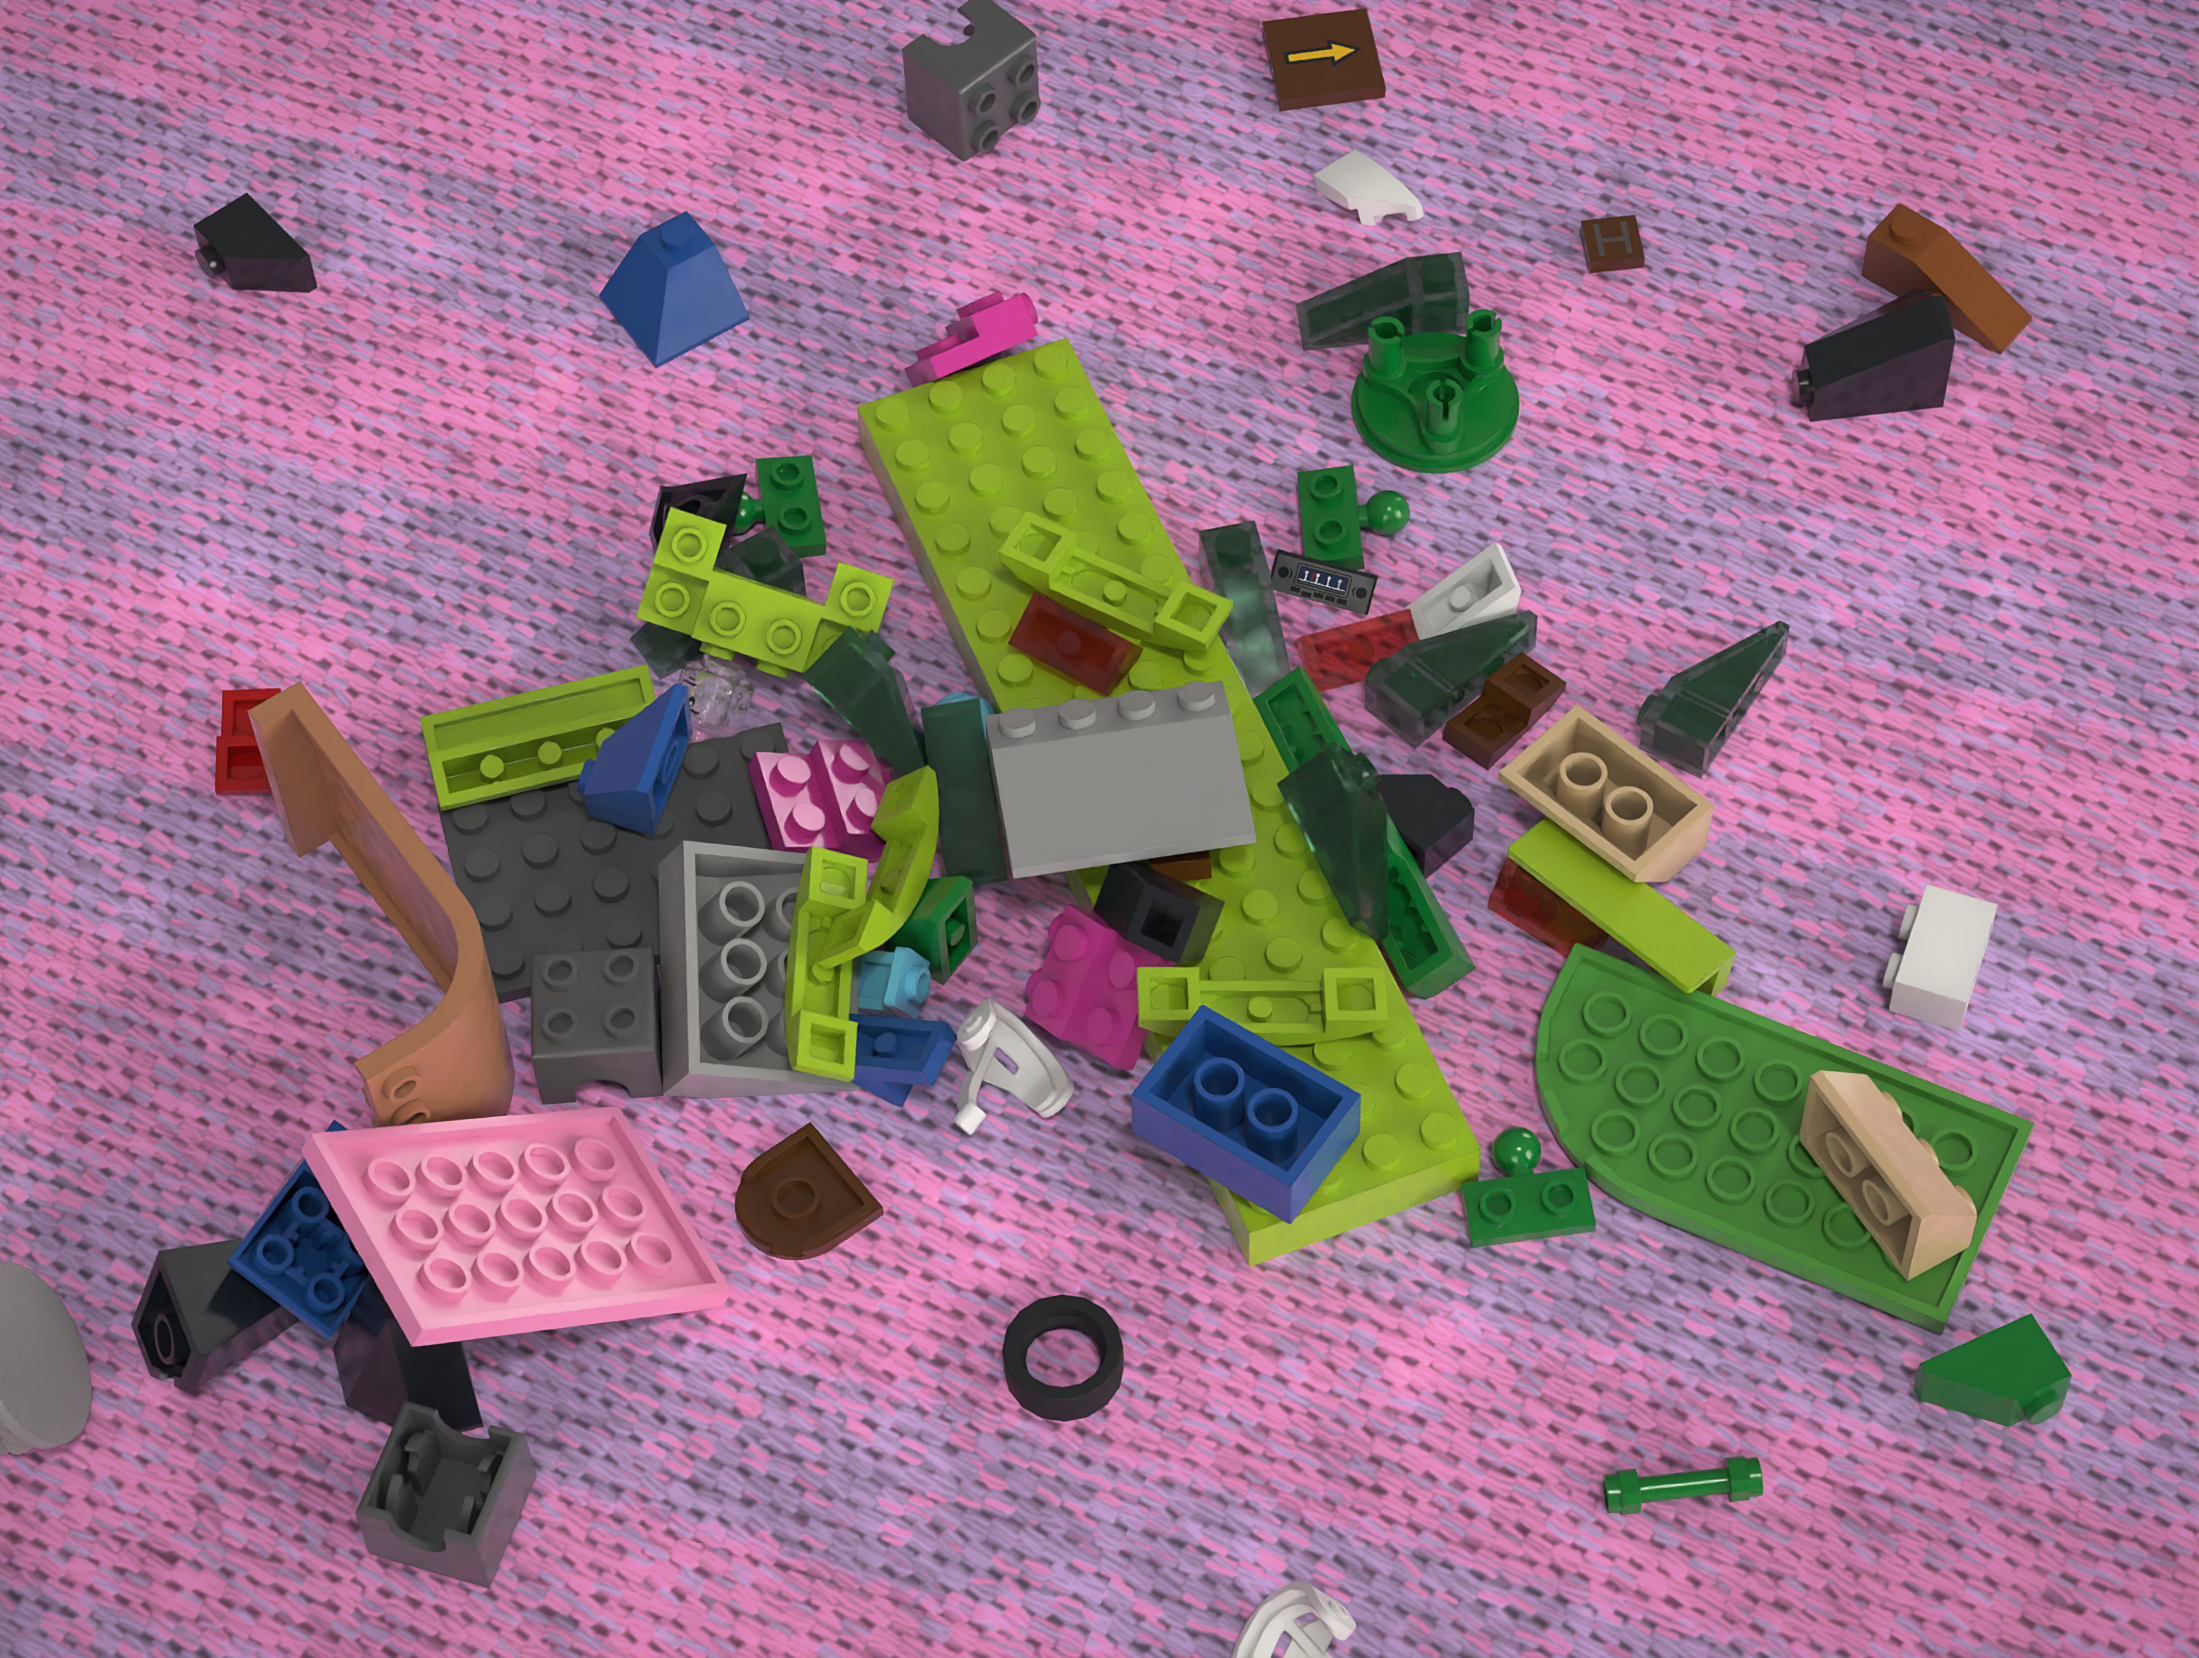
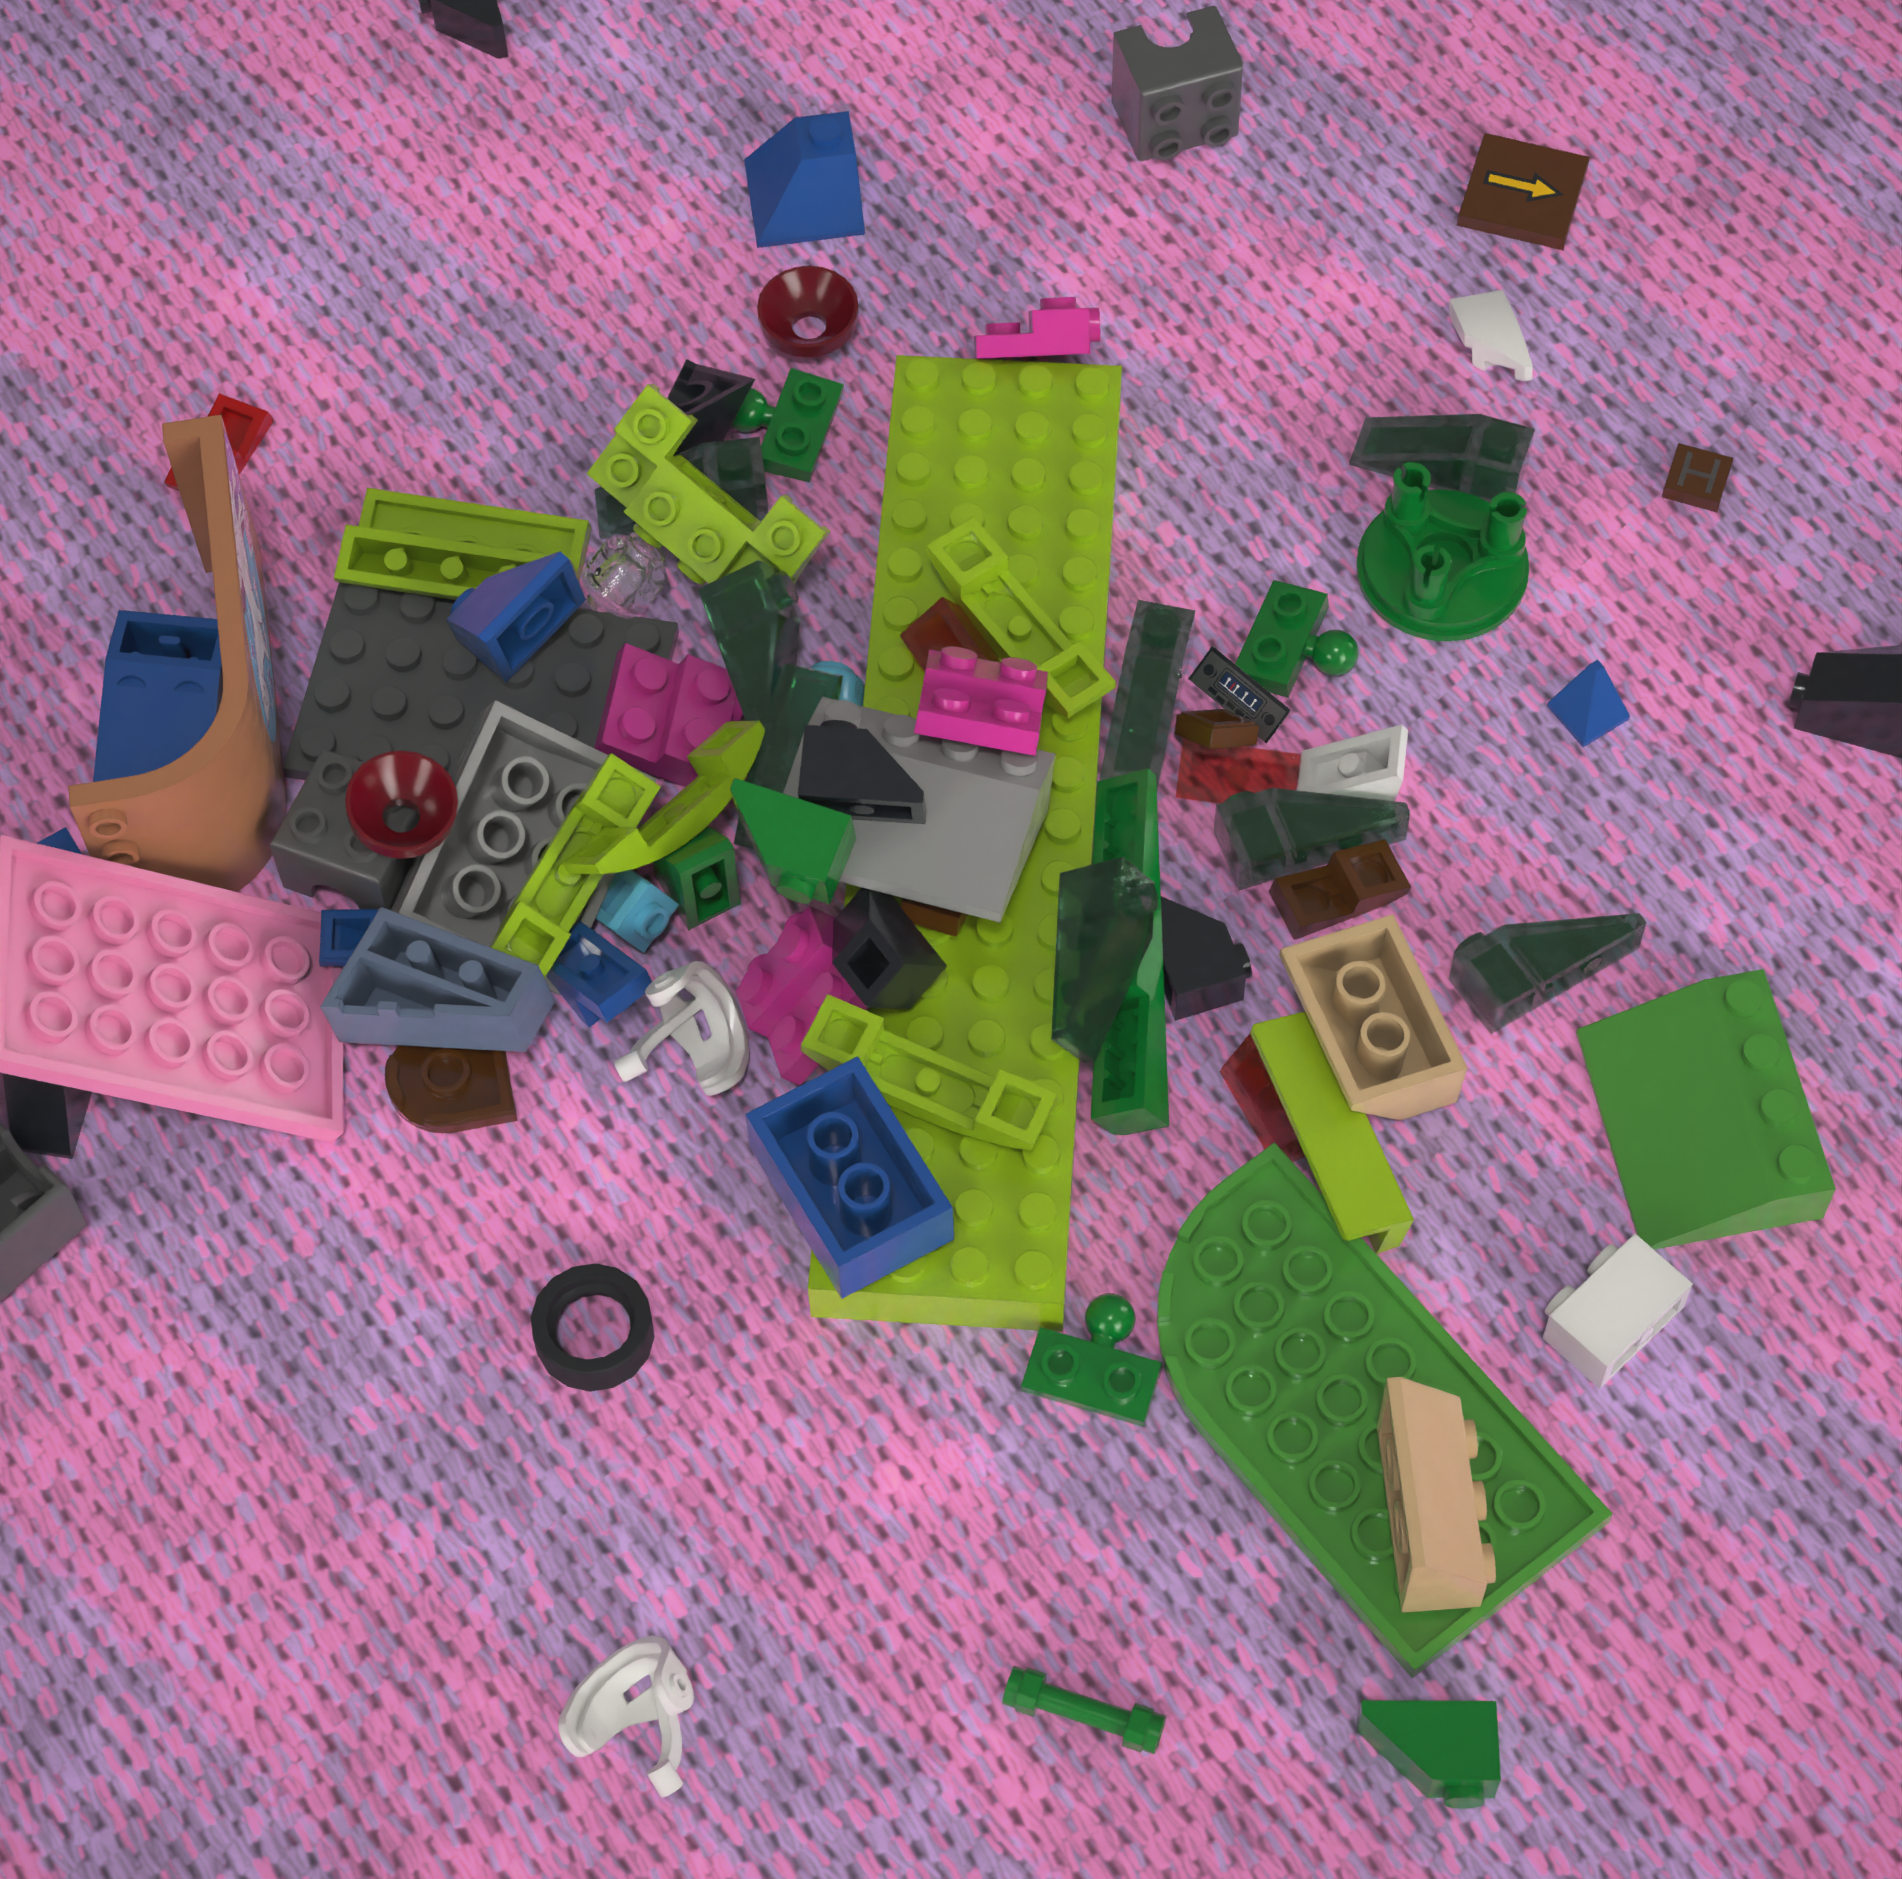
camera: 25 degrees right, 5 degrees up
(338, 981) = (156, 691): none -> blue slope
(641, 1116) = (341, 934): none -> blue slope
(656, 945) = (407, 781): none -> dark red piece
(740, 386) = (802, 294): none -> dark red piece
(760, 1123) = (435, 991): none -> sand blue wedge
(1039, 843) = (795, 840): none -> green slope
(1069, 765) = (856, 775): none -> black slope
(1132, 659) = (982, 700): none -> dark pink plate
(1324, 616) = (1216, 728): none -> reddish brown tile
(1629, 470) = (1589, 705): none -> blue slope
(1924, 763) = (1707, 1113): none -> bright green slope

